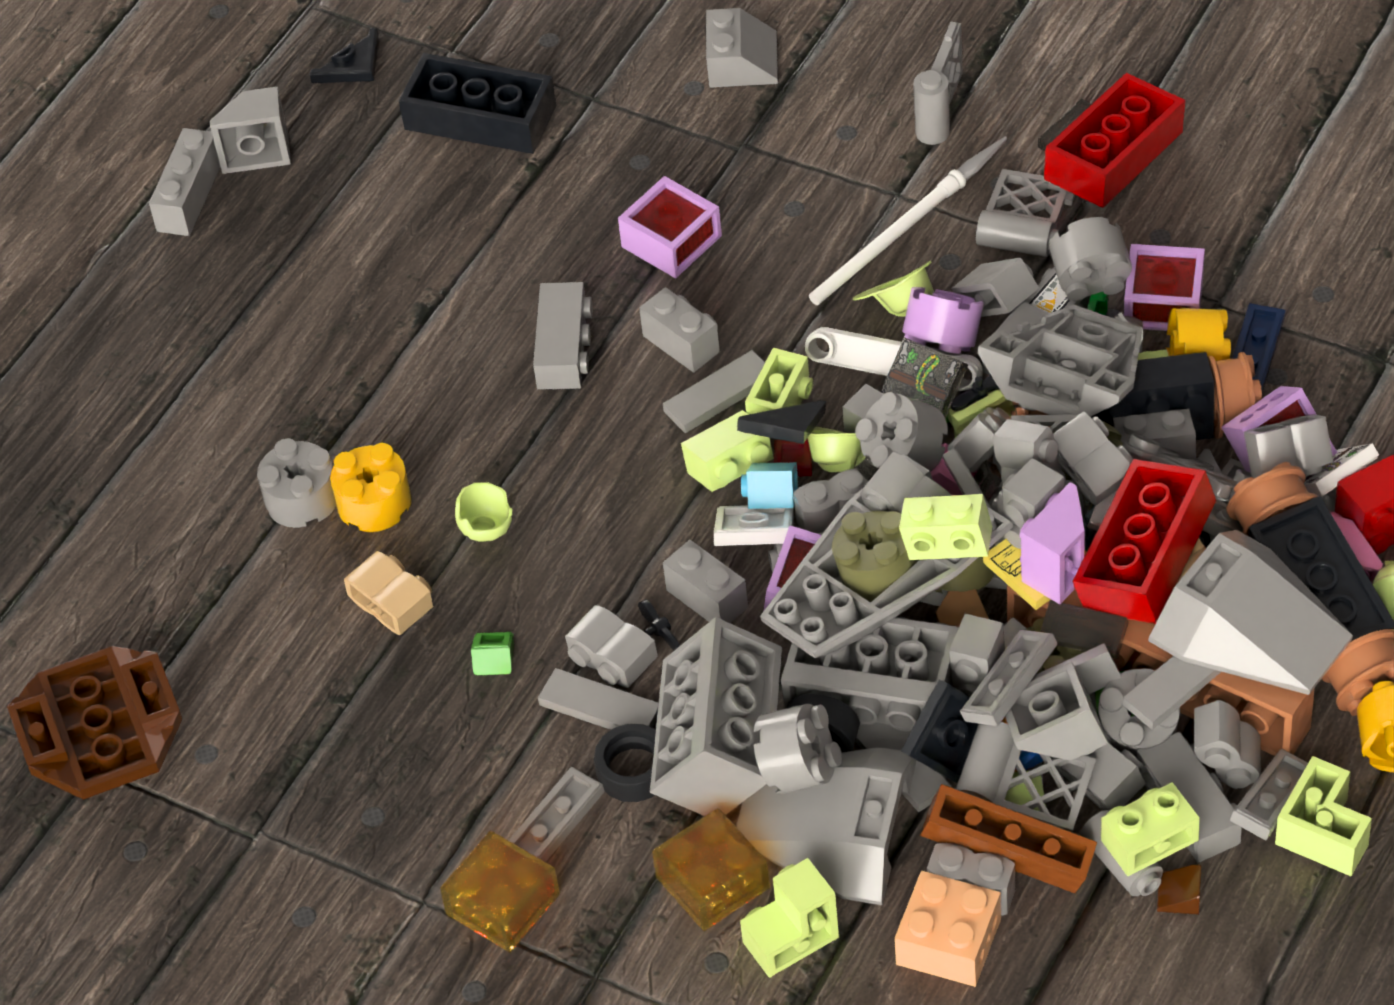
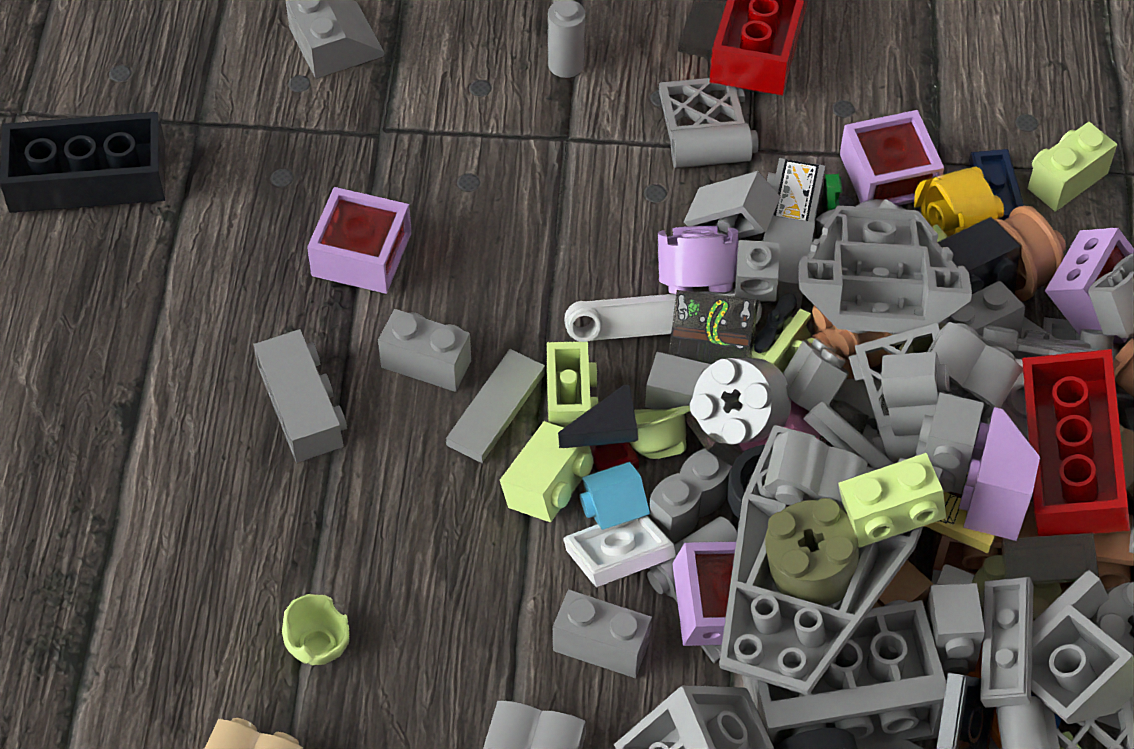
camera: 30 degrees left, 5 degrees up
(296, 483) = (83, 664): light grey brick -> none
(370, 487) = (171, 642): yellow brick -> none
(659, 625) = (569, 696): black piece -> none
(896, 293) = (632, 241): yellowish green piece -> none
(948, 186) = (616, 113): white piece -> none
(971, 332) = (757, 270): none -> light grey brick
(1090, 258) = (824, 152): light grey brick -> none
(1331, 339) = (1071, 165): none -> yellowish green brick

